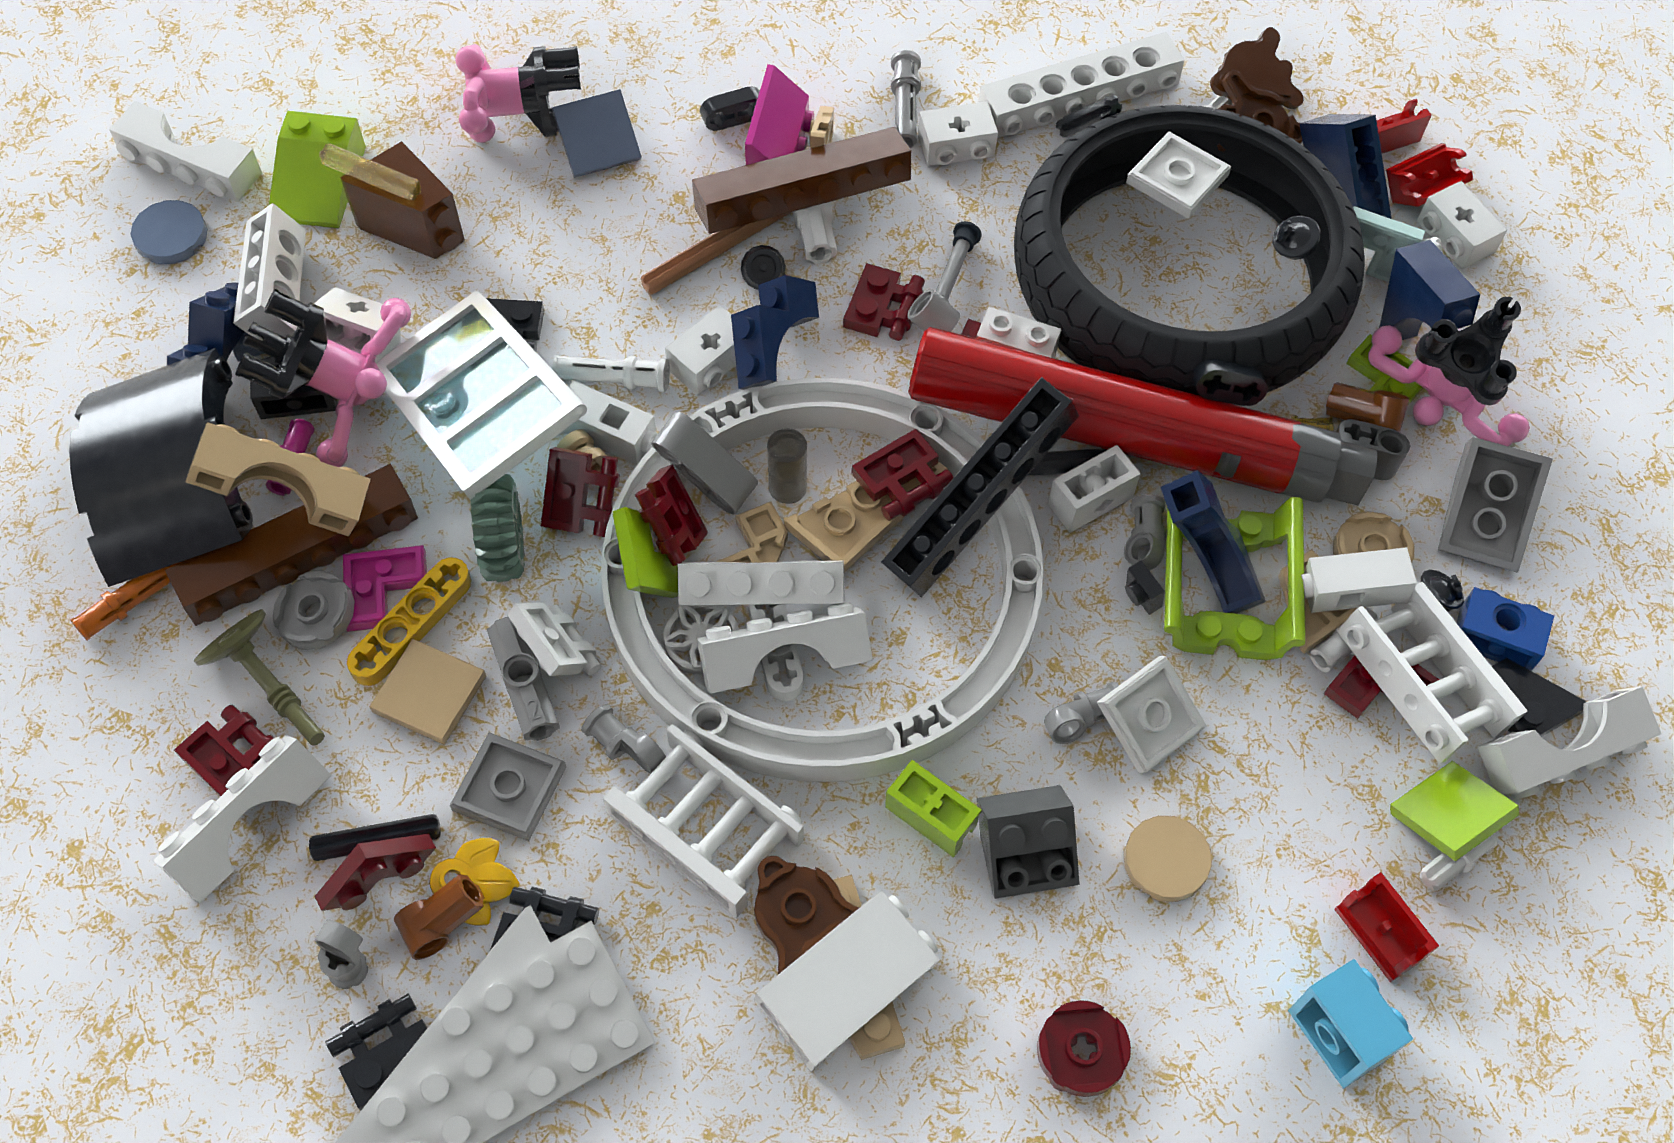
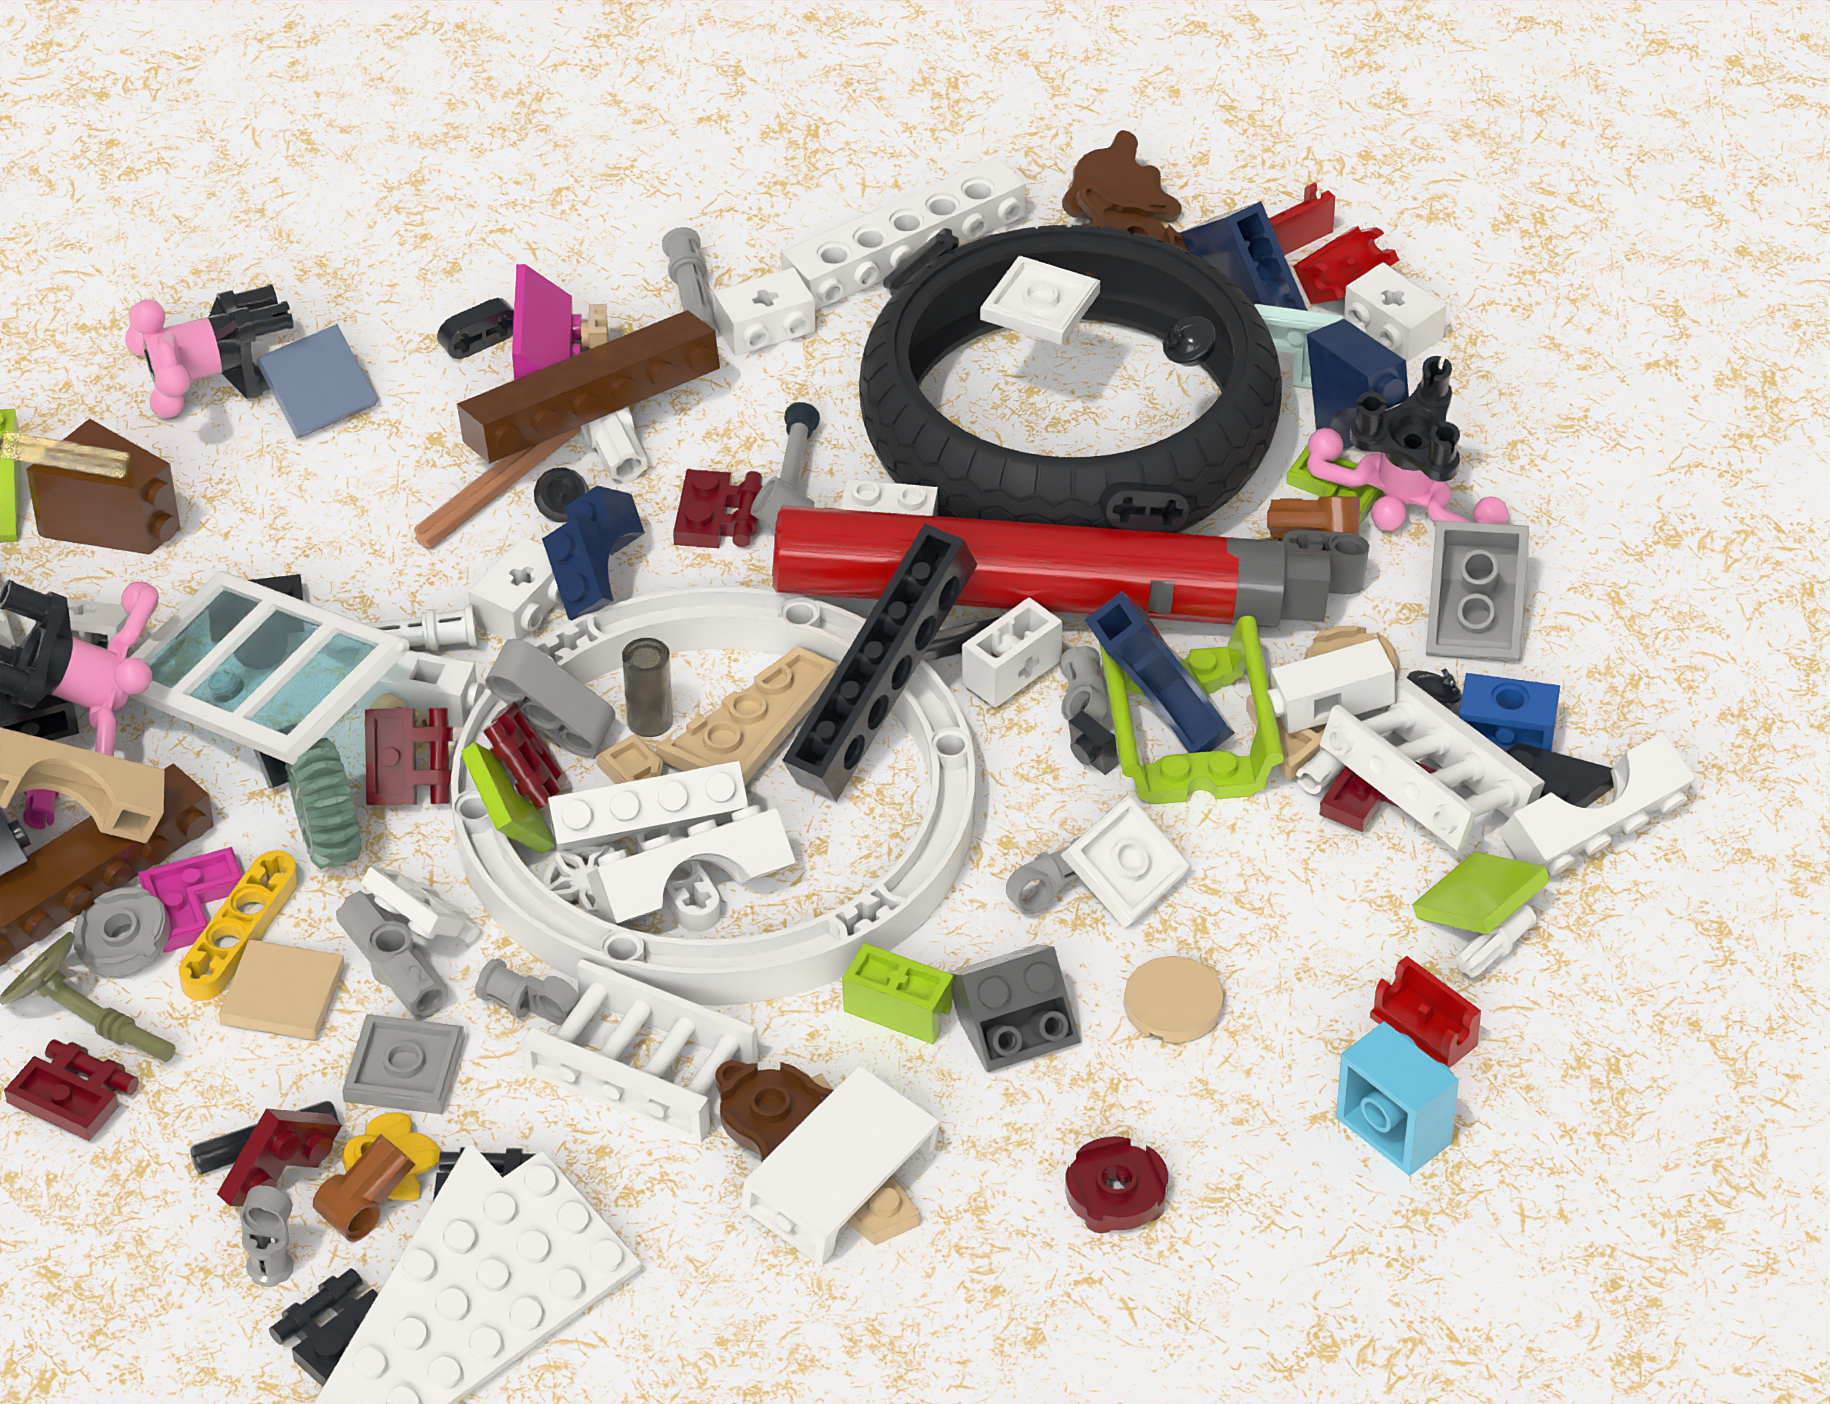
camera: 10 degrees left, 15 degrees down
(200, 855) = (75, 1177): white arch -> none
(894, 466) = (775, 665): dark red plate -> none

